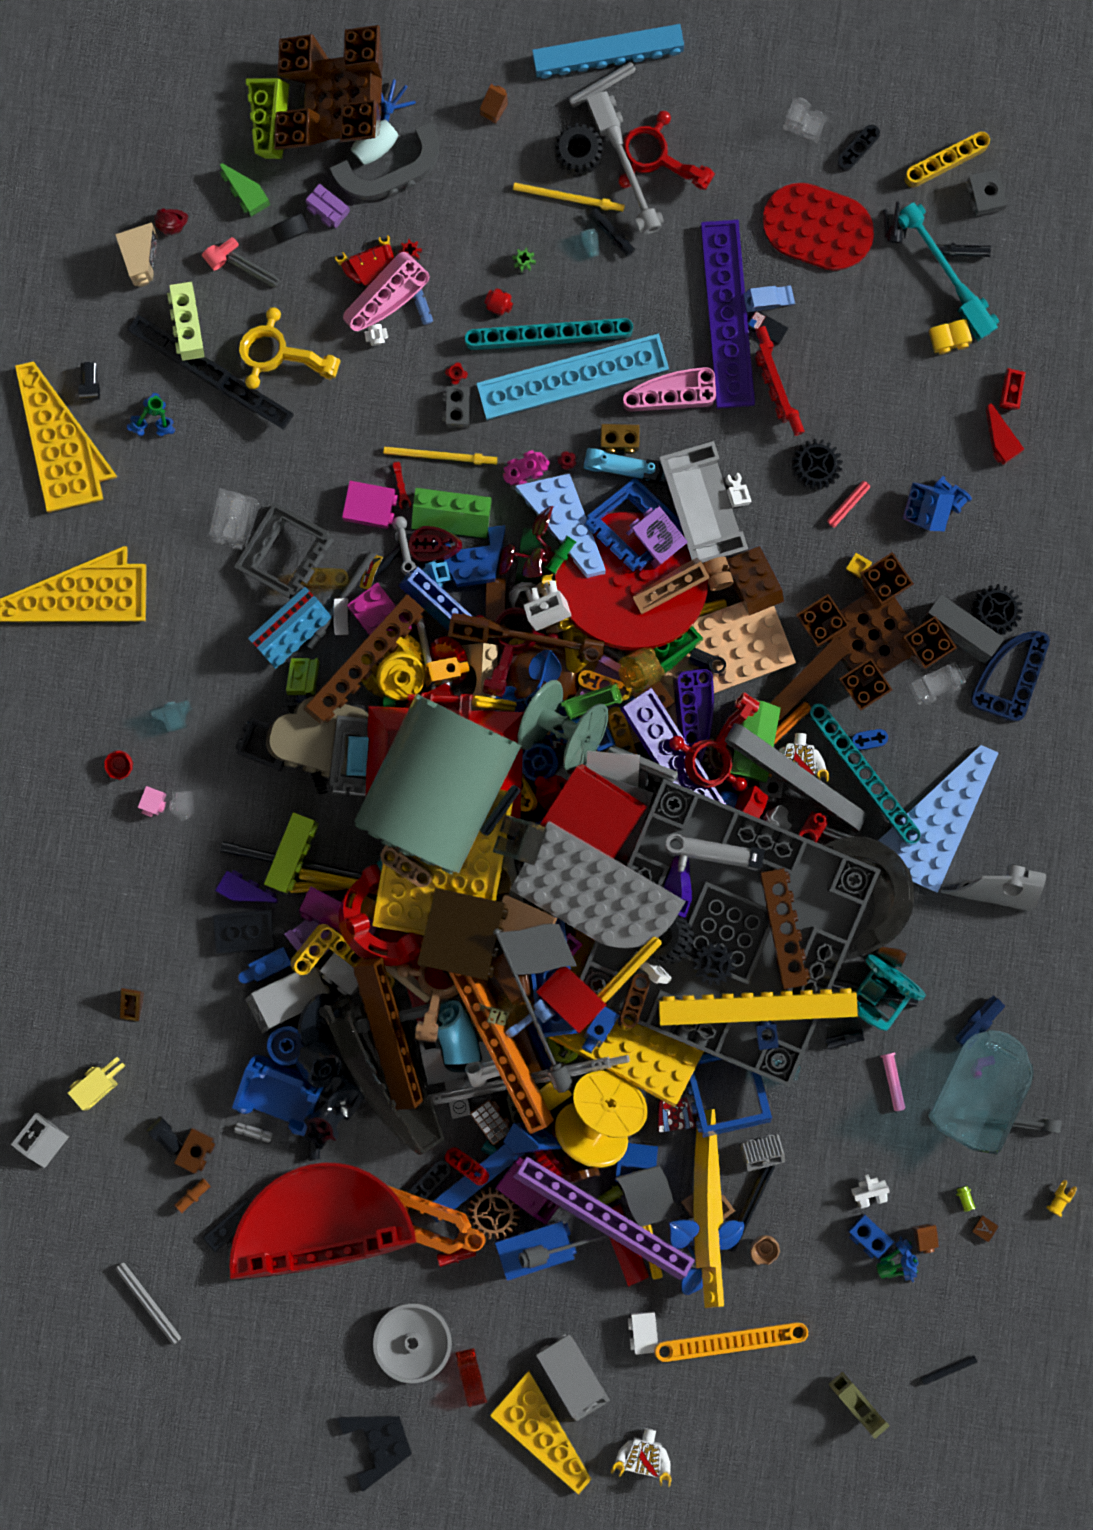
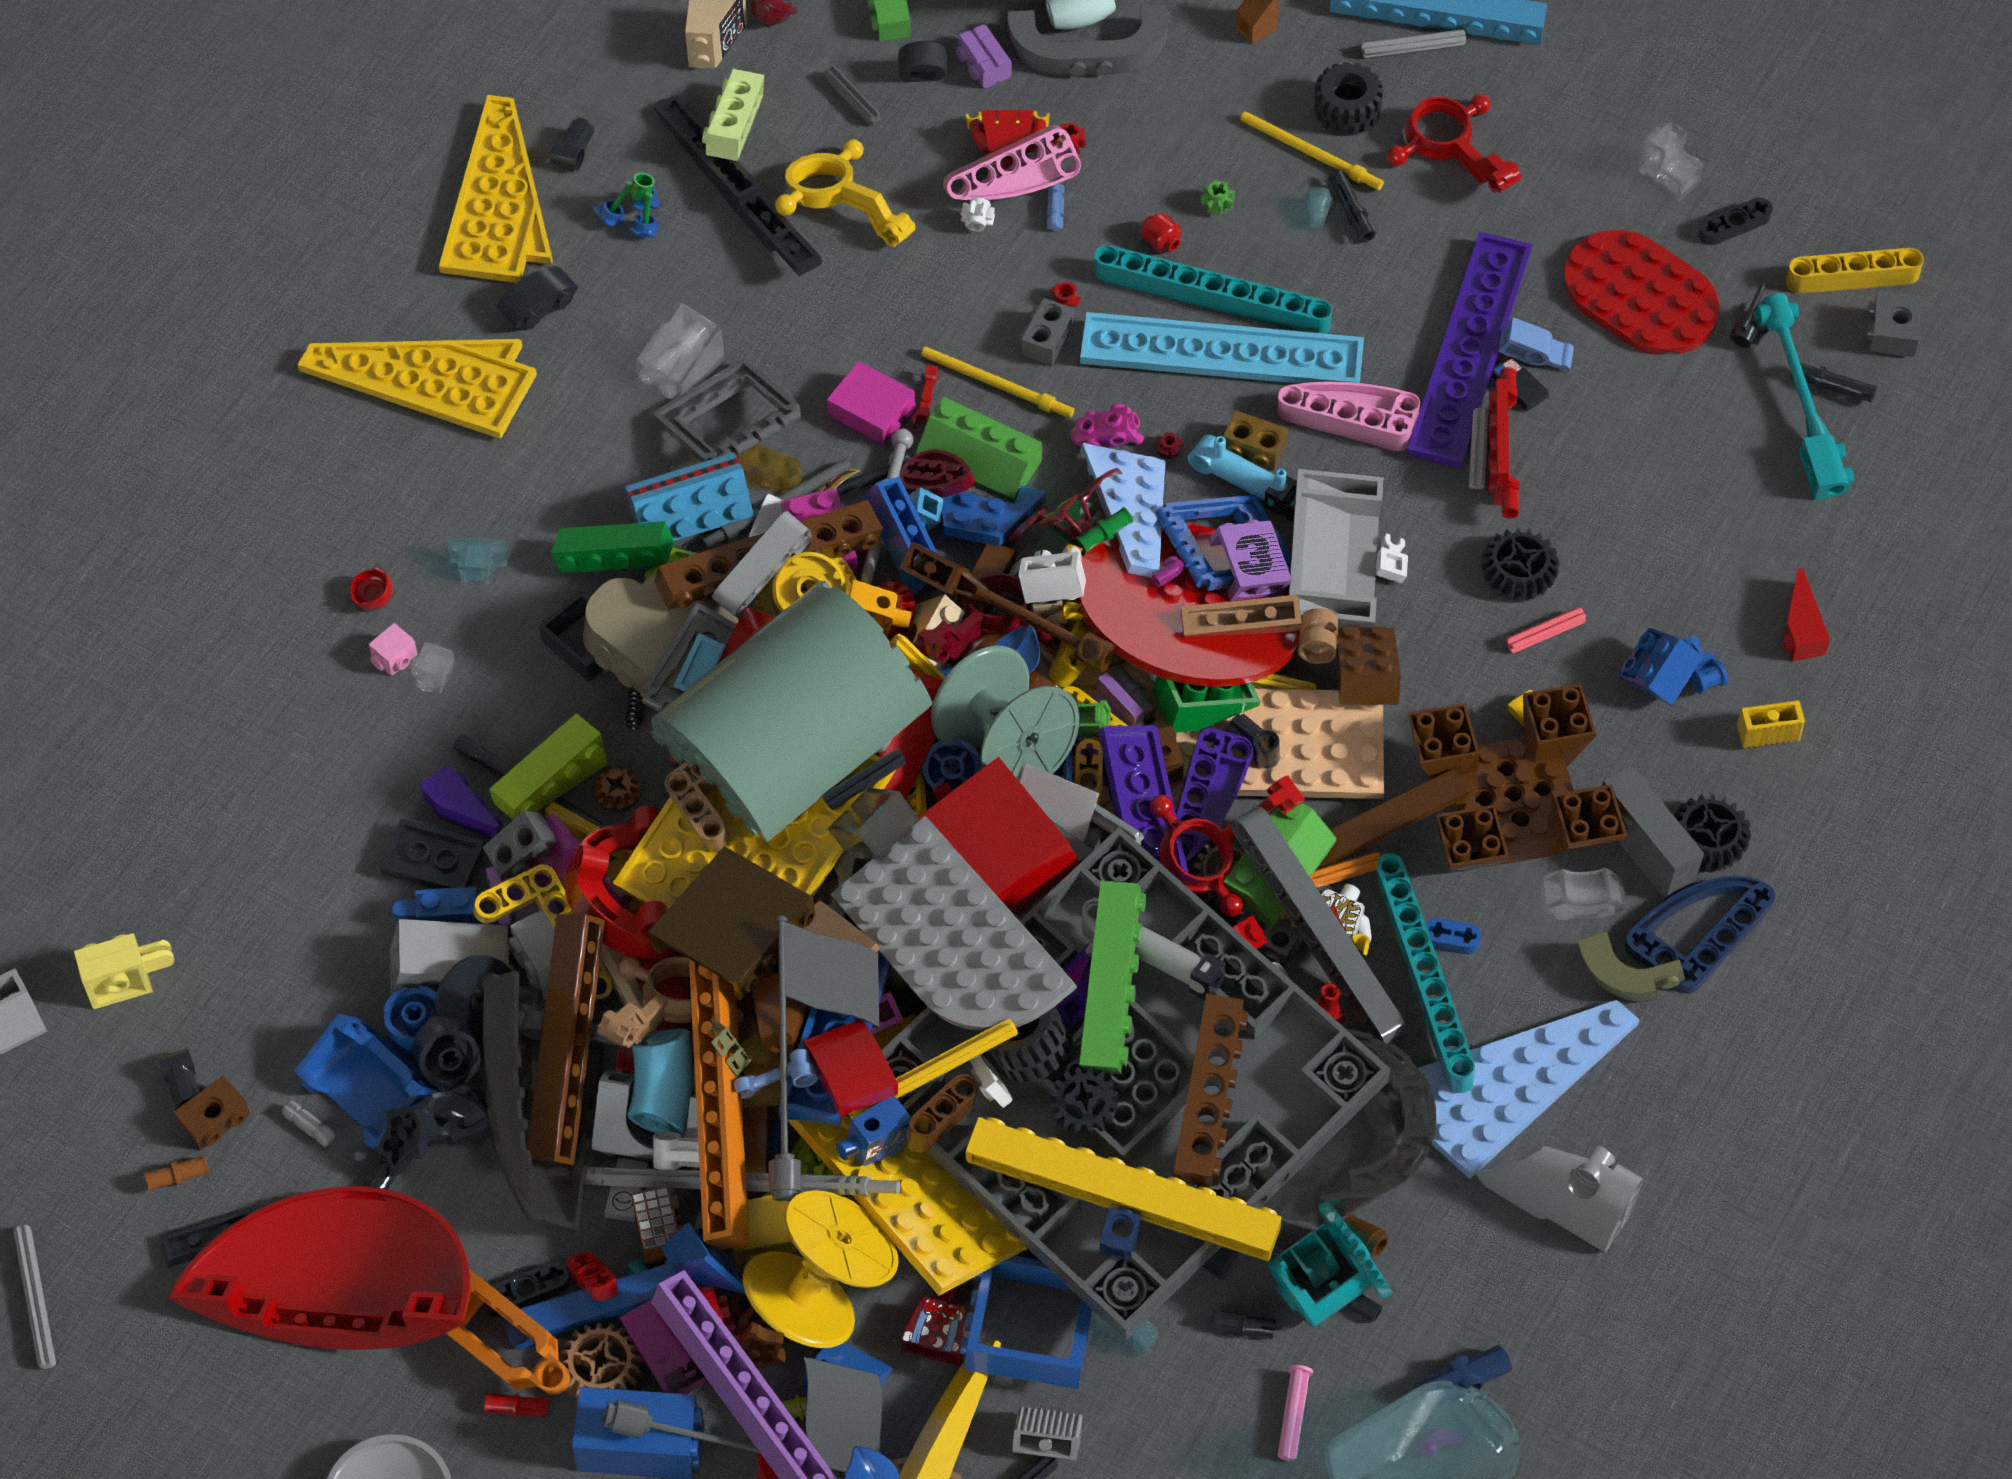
camera: 25 degrees right, 25 degrees down
(121, 510) = (537, 296): none -> black brick
(131, 1004) = (228, 887): reddish brown slope -> none
(216, 256) = (811, 63): coral axle -> none
(257, 680) = (612, 547): none -> green brick
(297, 916) = (517, 839): none -> dark grey brick
(337, 846) = (618, 798): none -> dark orange gear
(369, 676) = (760, 564): none -> light grey beam
(608, 123) = (1402, 86): light grey bar -> none
(612, 568) = (1172, 569): none -> magenta arm
(640, 669) = (1151, 697): clear yellow brick -> none
(701, 884) = (1111, 977): none -> bright green brick
(761, 389) = (1478, 448): none -> light grey axle
(950, 336) = (1776, 475): yellow brick -> none
(981, 733) = (1624, 981): none -> olive arch
(1008, 521) = (1770, 724): none -> yellow brick
(1012, 389) = (1840, 568): red brick -> none

